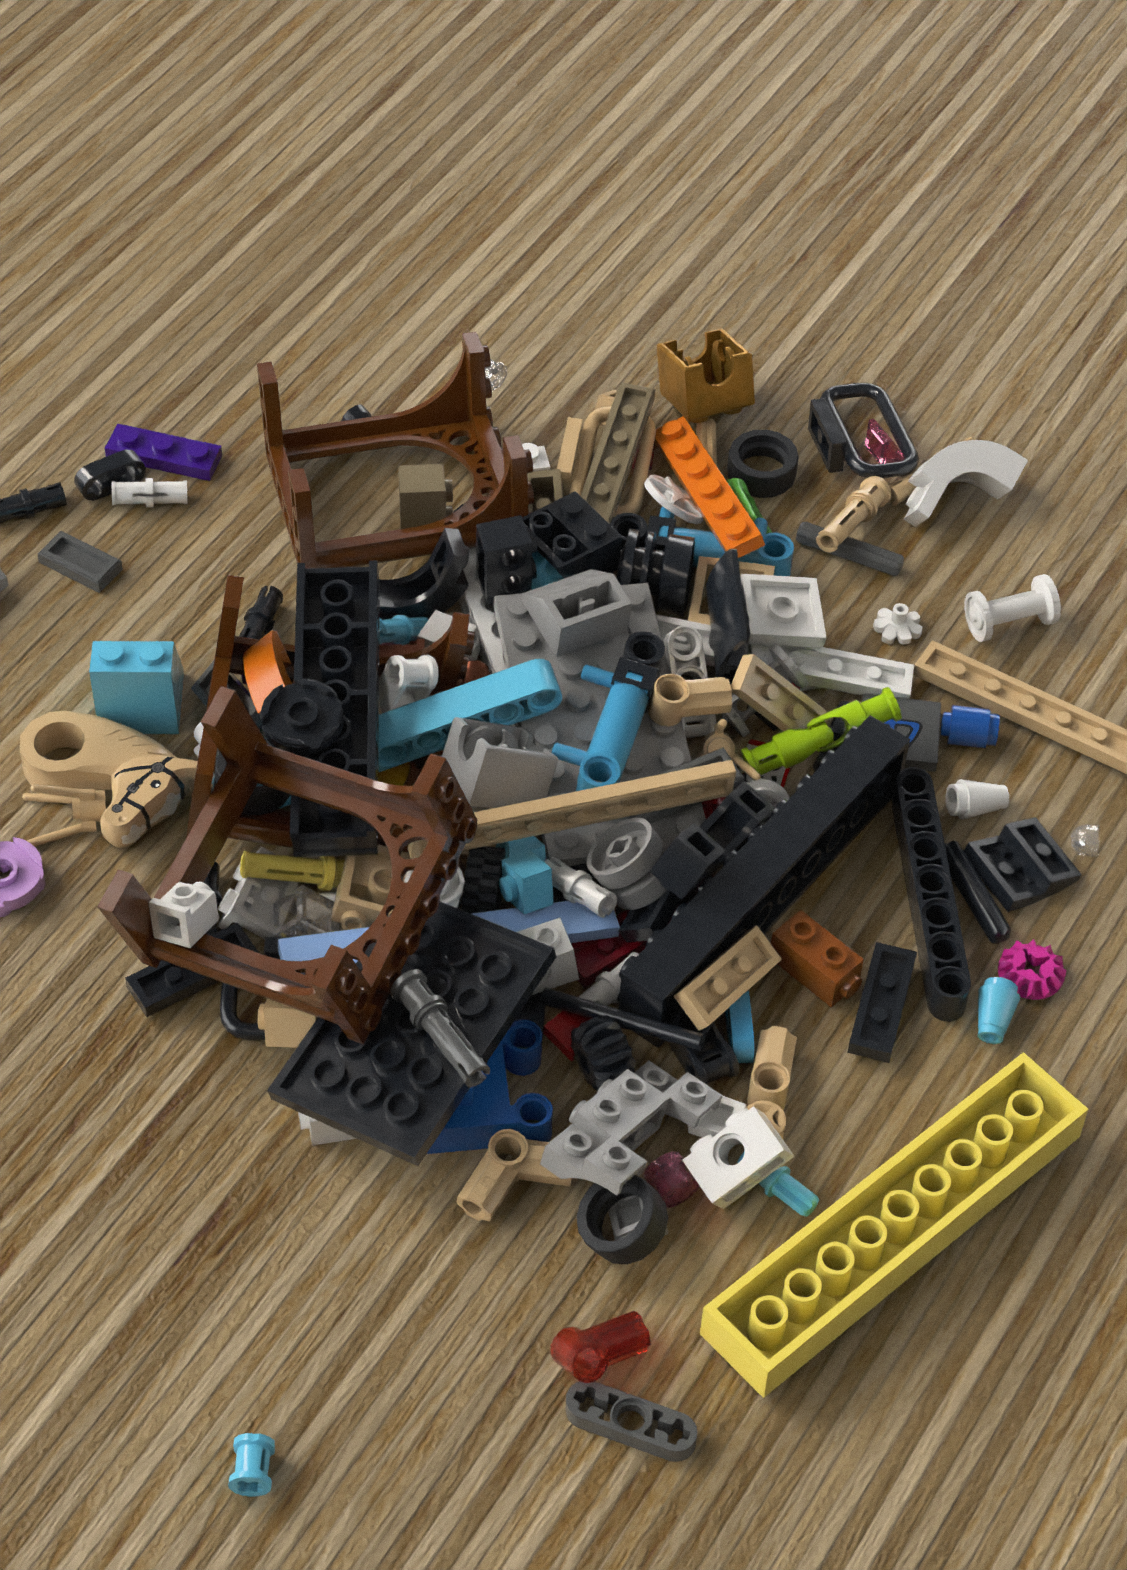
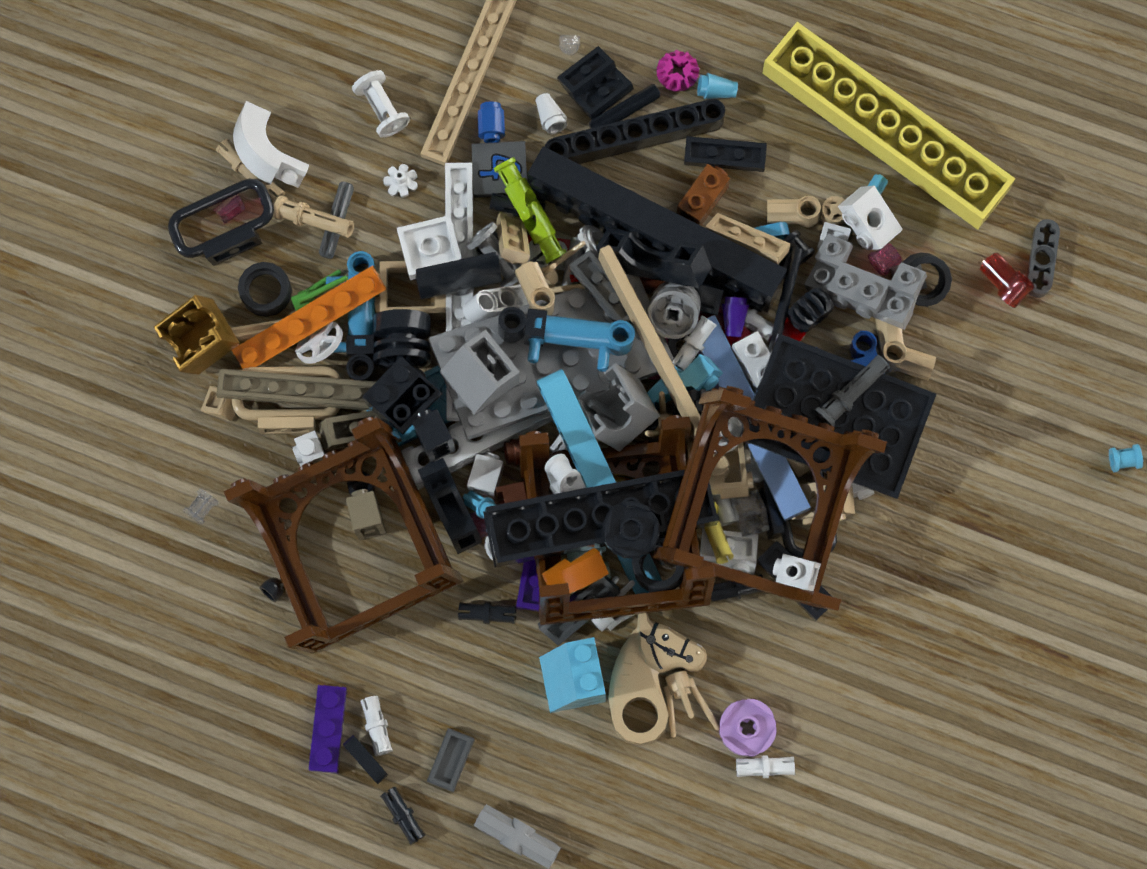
camera: 95 degrees left, 25 degrees up
(610, 947) = (734, 315): none -> dark purple cone

